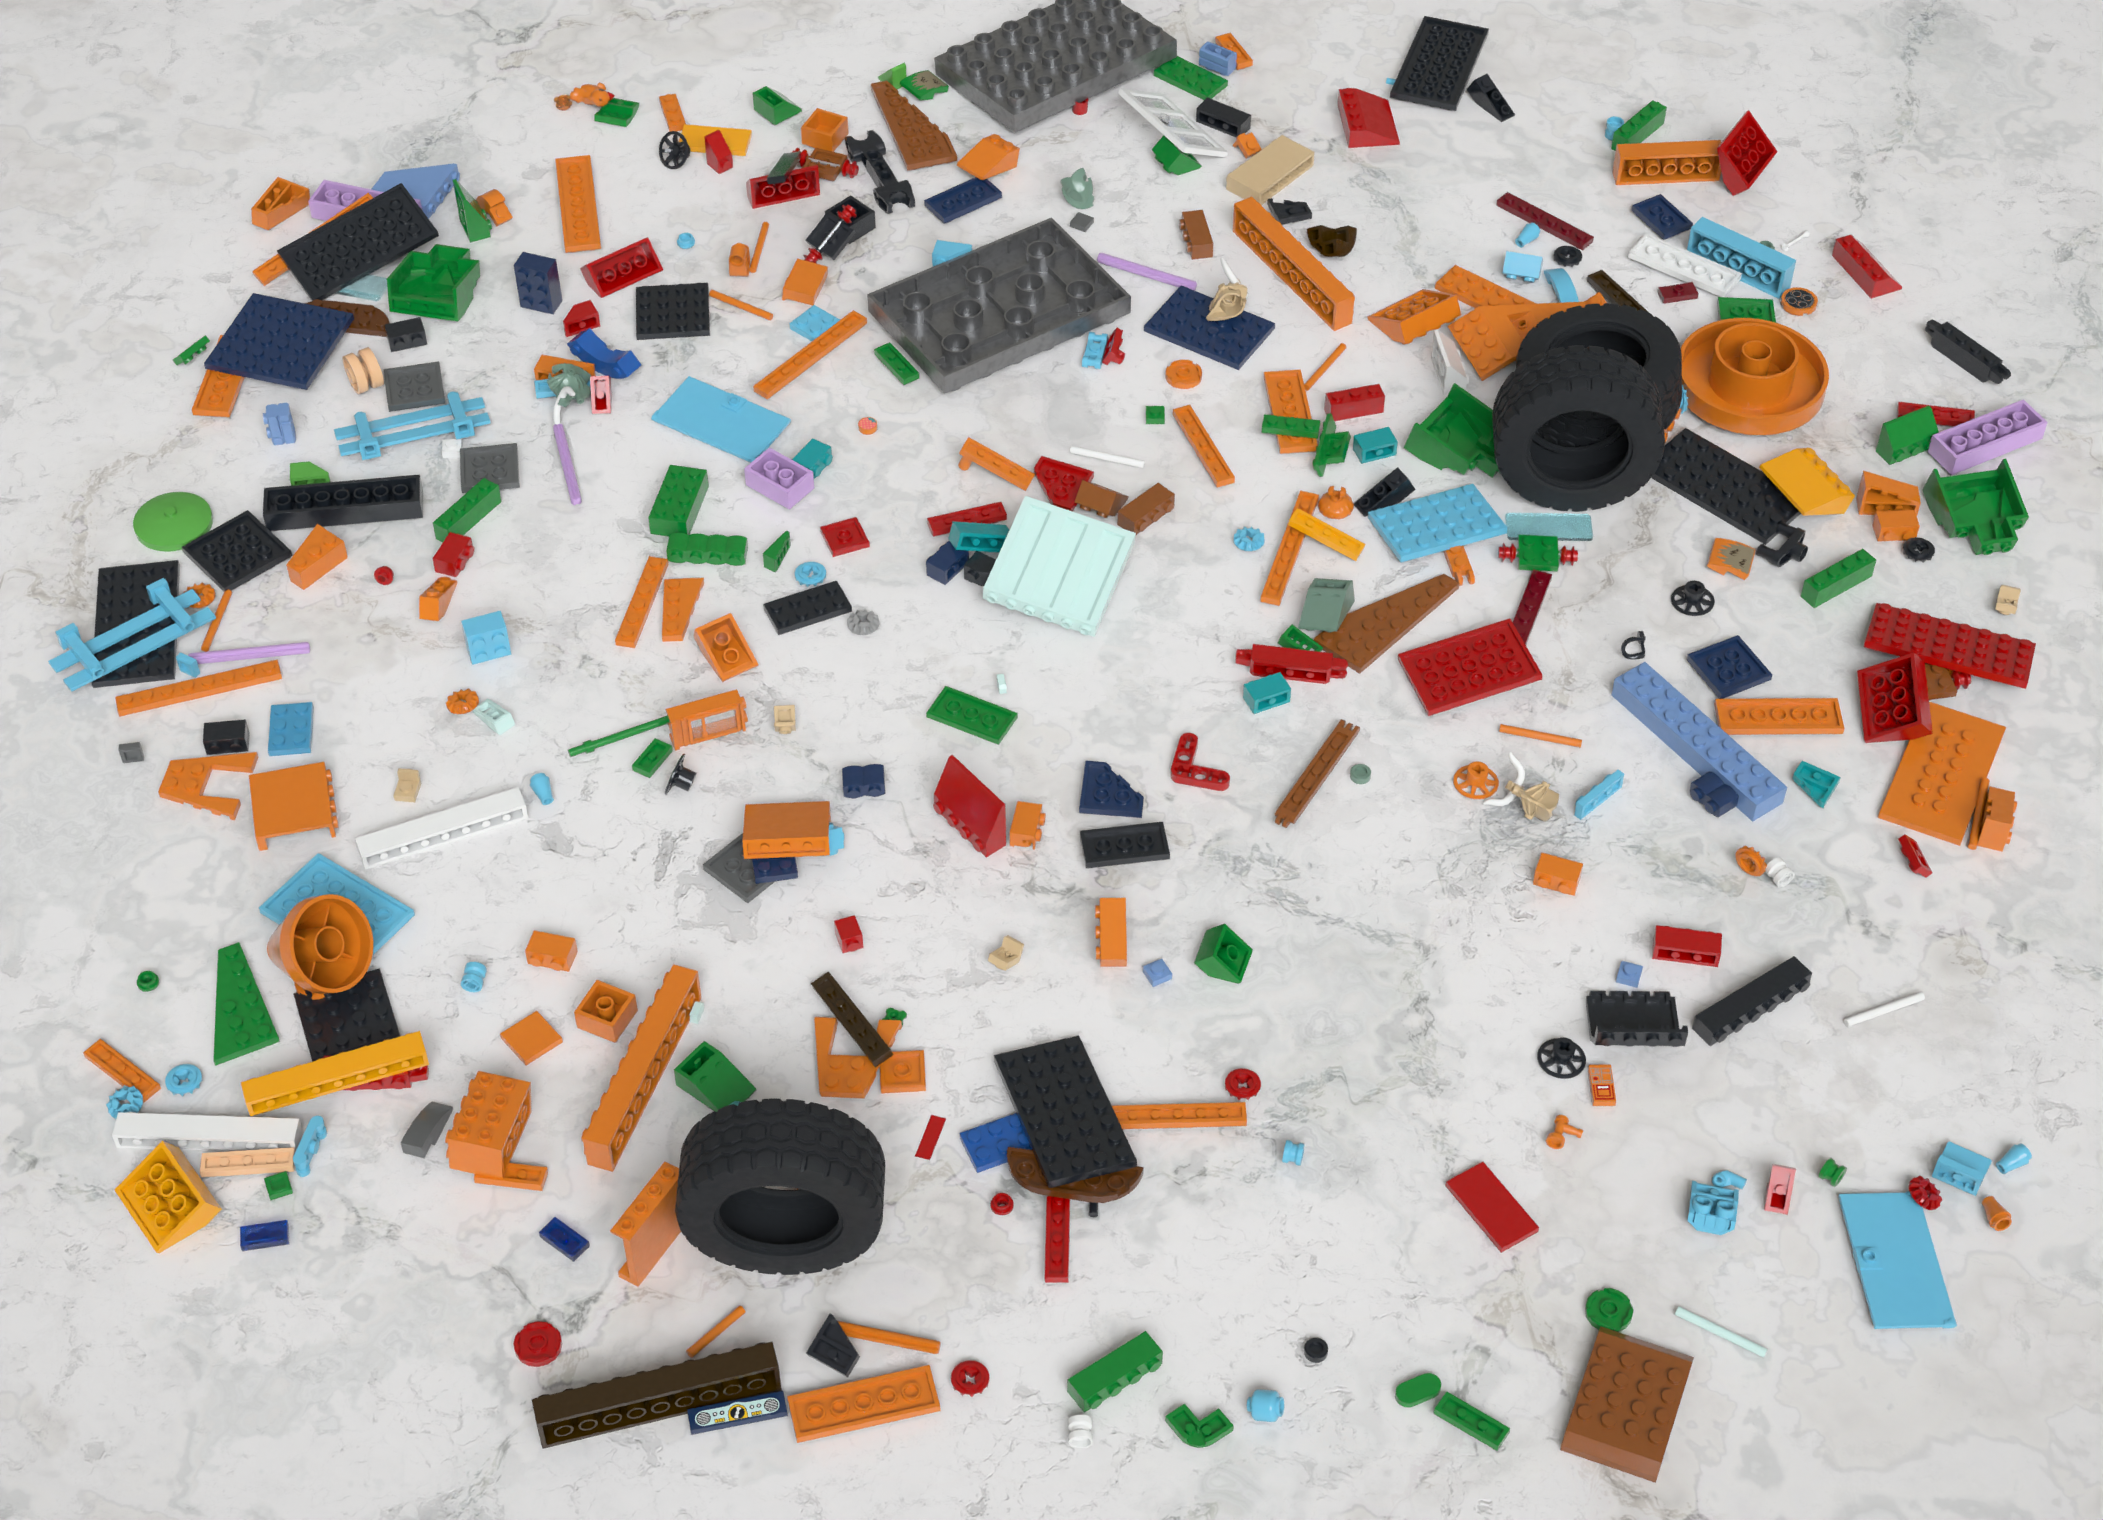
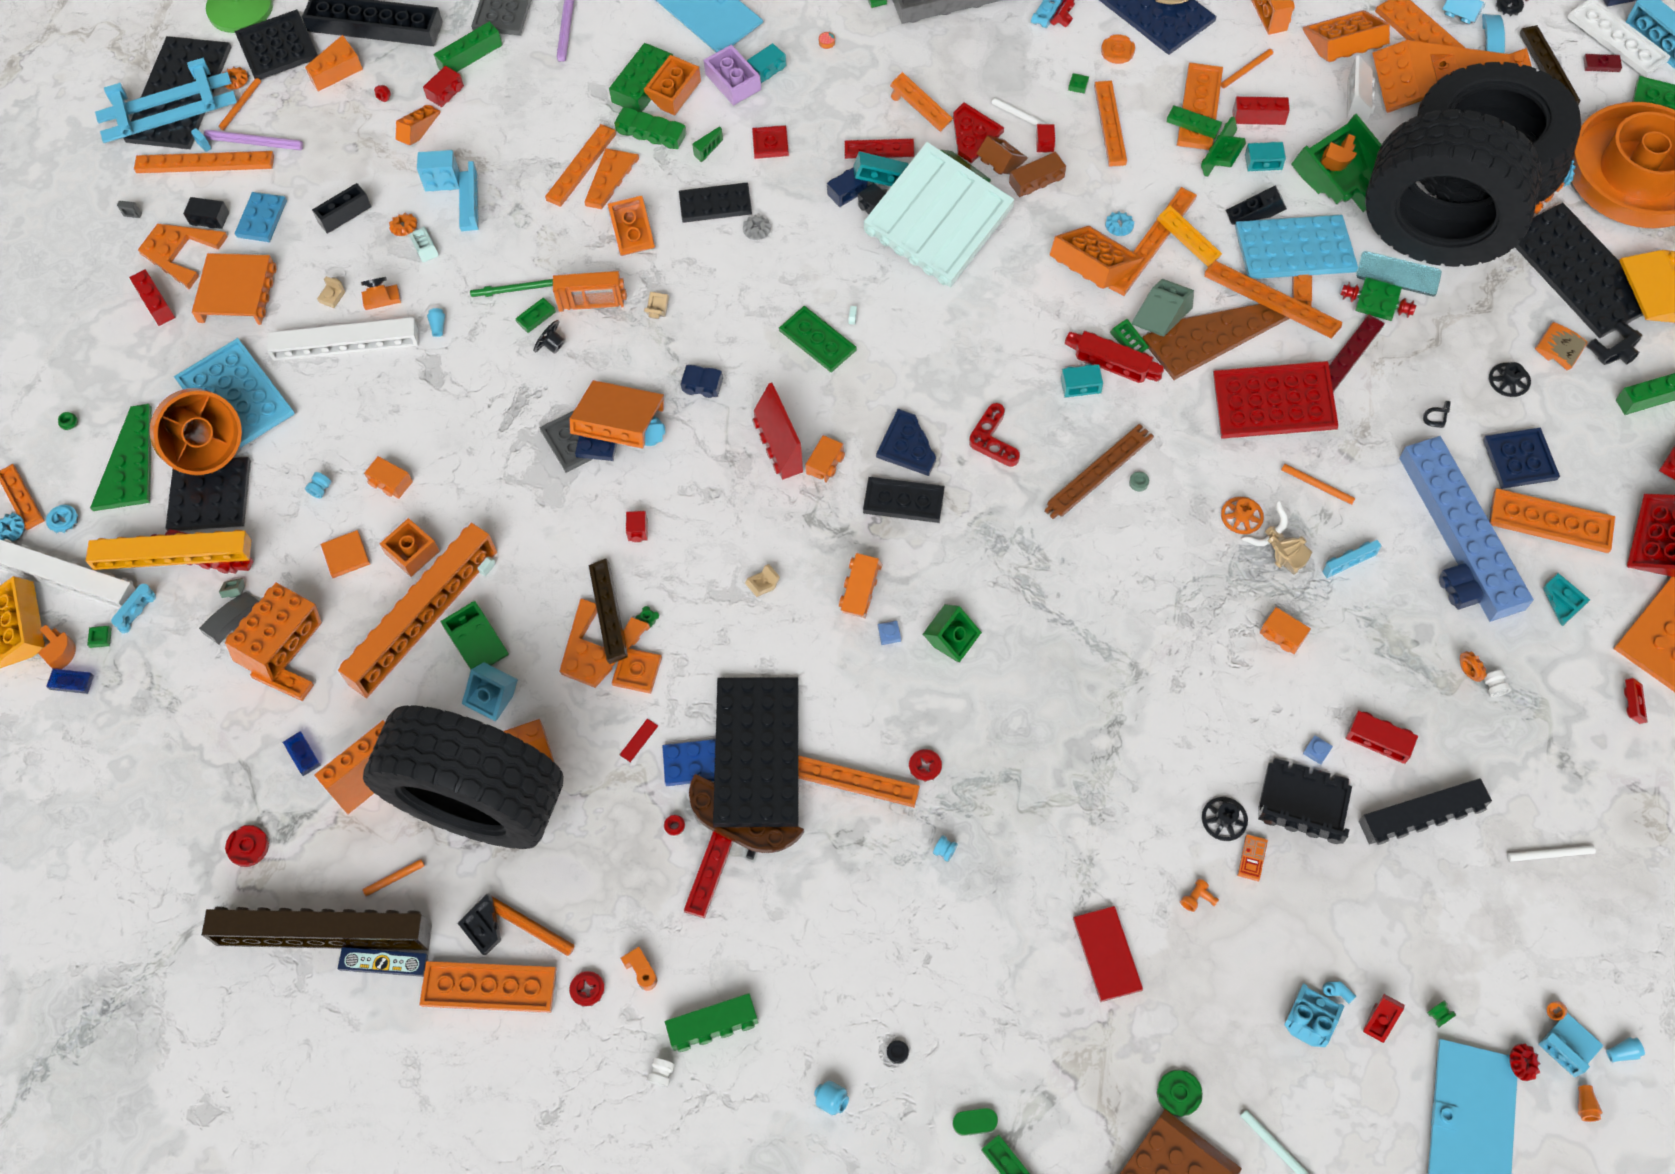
camera: 20 degrees right, 15 degrees up
(198, 834) = (152, 297): none -> red brick
(237, 1208) = (59, 650): none -> orange brick
(247, 1162) = (79, 608): light nougat plate -> none
(387, 698) = (341, 208): none -> black brick
(416, 1100) = (232, 588): none -> sand green plate
(467, 775) = (379, 295): none -> orange piece
(528, 660) = (468, 198): none -> medium azure fence
(717, 500) = (673, 84): none -> orange slope
(805, 569) = (726, 165): medium azure gear -> none
(1020, 1342) = (645, 975): none -> orange leg
(1141, 473) = (1045, 138): none -> red brick
(1196, 1432) = (763, 1105): green plate -> none
(1235, 573) = (1094, 256): none -> orange slope
(1335, 504) = (1209, 207): orange hair -> none
(1433, 574) = (1273, 299): none -> orange plate
(1450, 428) = (1339, 157): none -> orange brick
(1933, 1139) = (1561, 1014): none -> orange hinge

